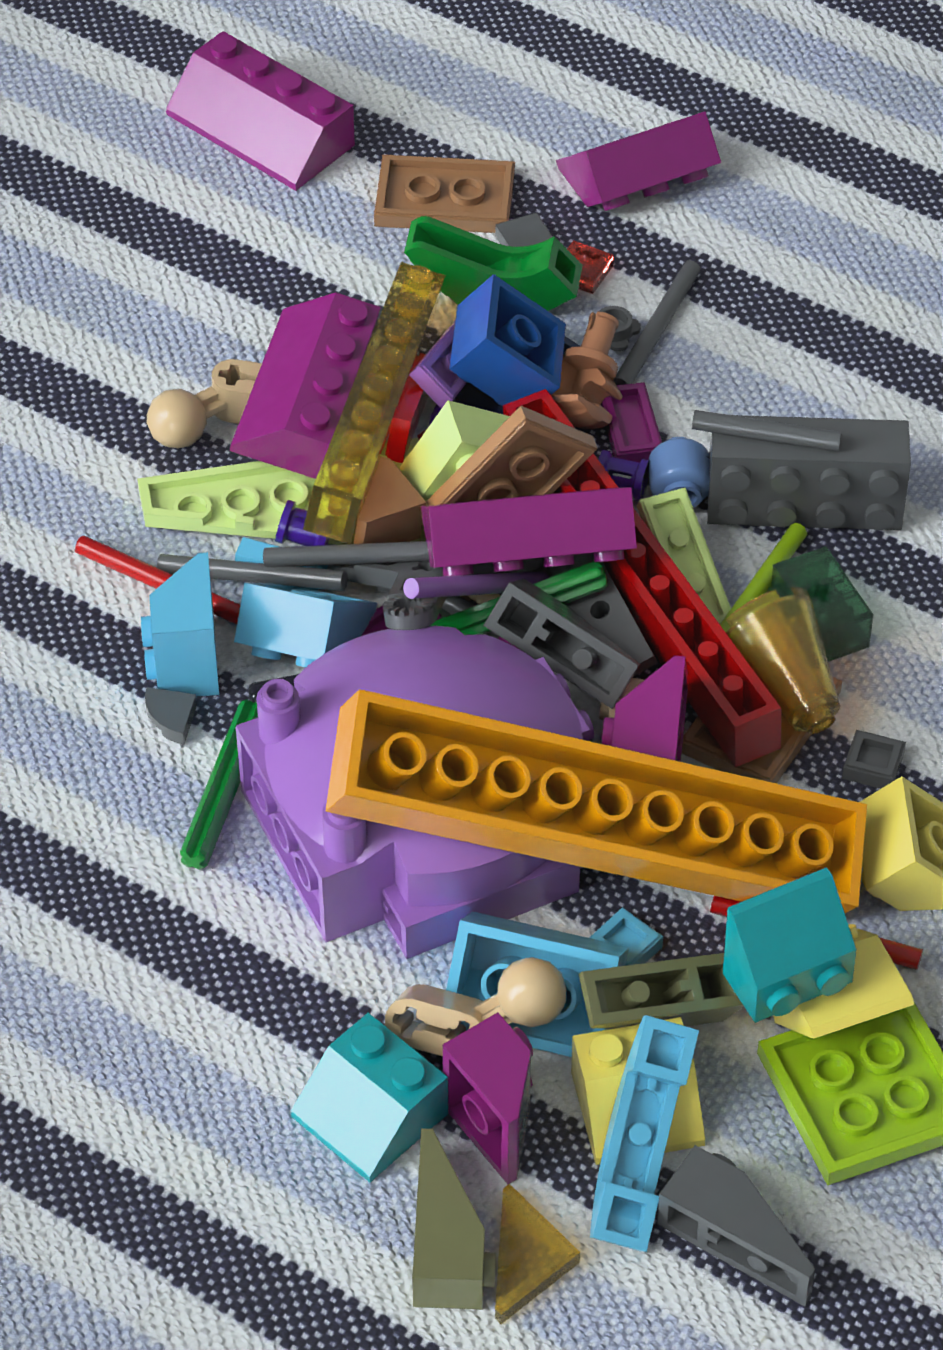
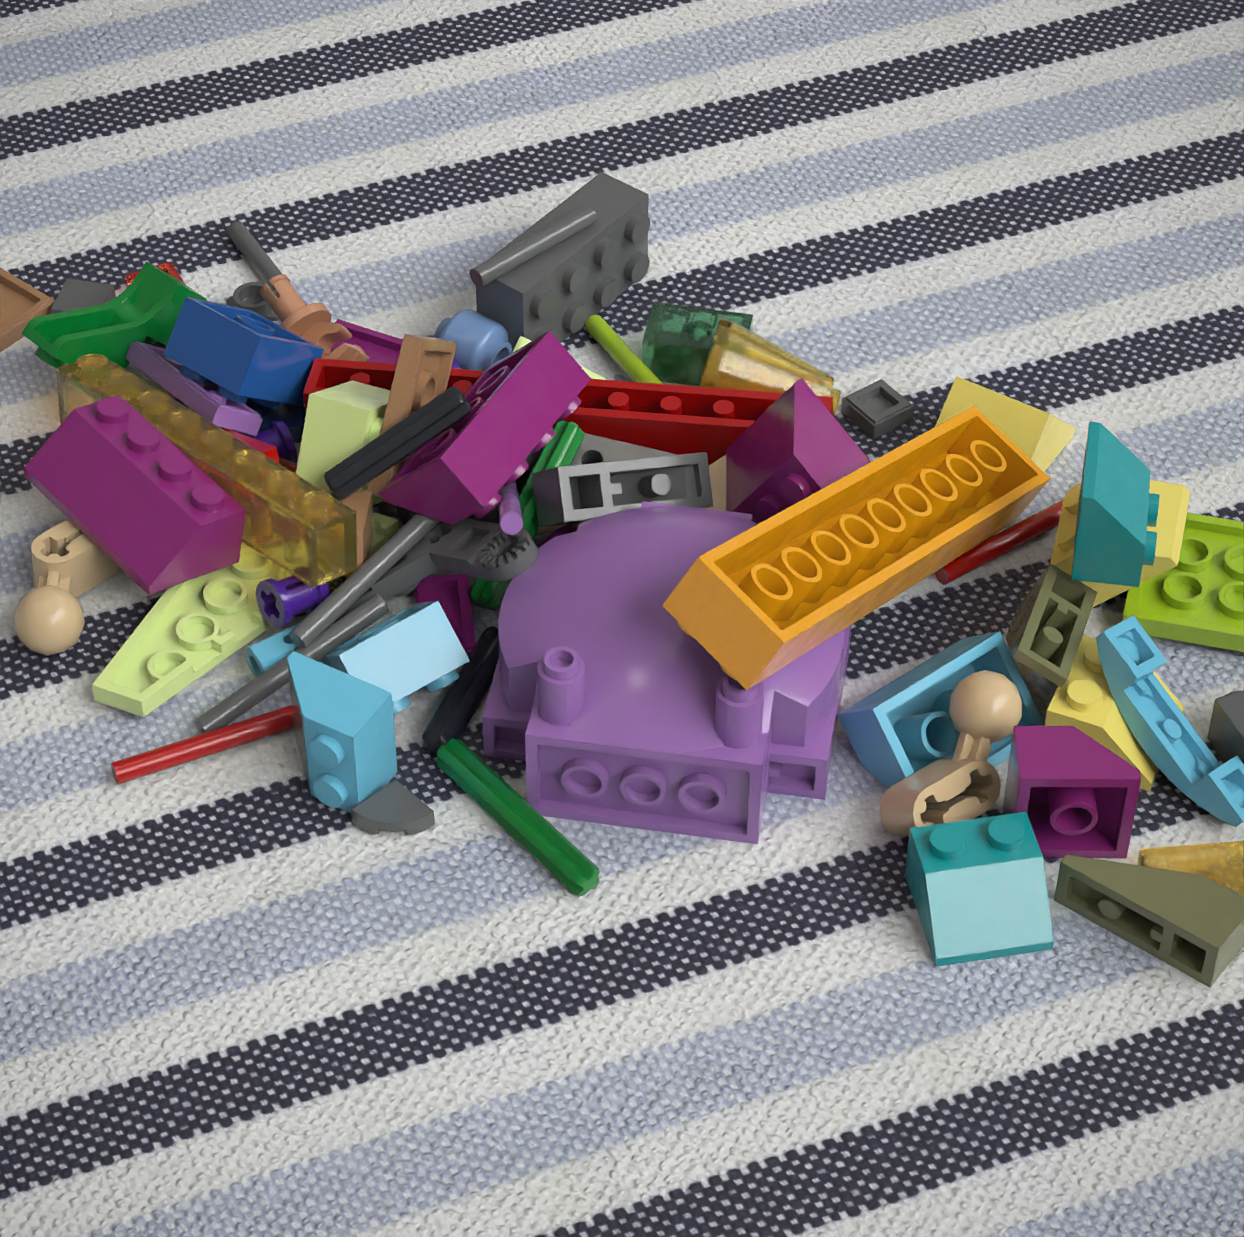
camera: 55 degrees left, 5 degrees down
(455, 480) = (397, 443): none -> black axle
(631, 932) = (929, 639): medium azure tile -> none
(642, 162) = (86, 188): magenta slope -> none

